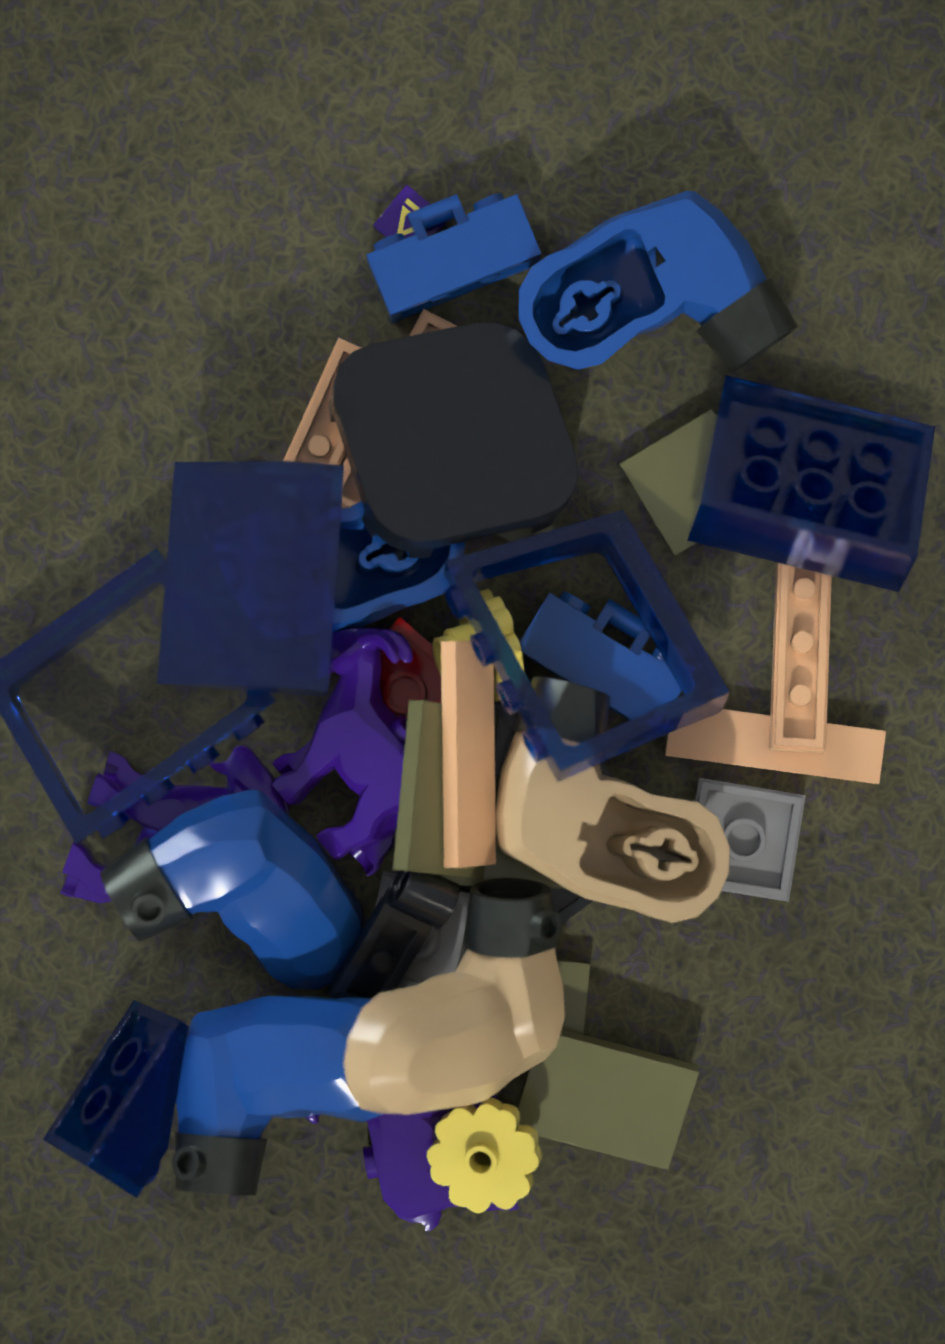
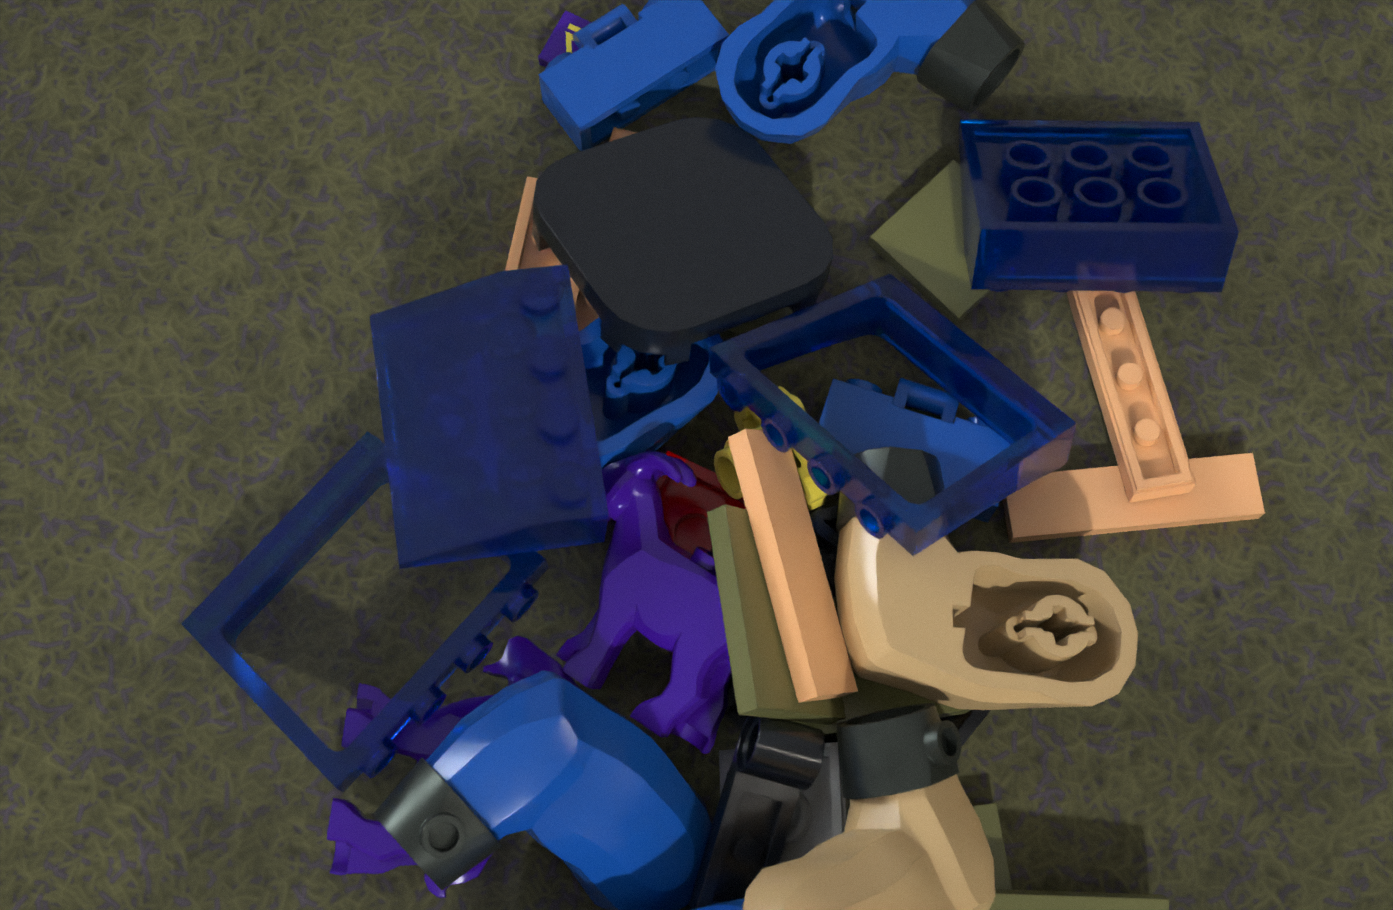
camera: 15 degrees left, 15 degrees down
(761, 835) = (1162, 605): light grey tile -> none

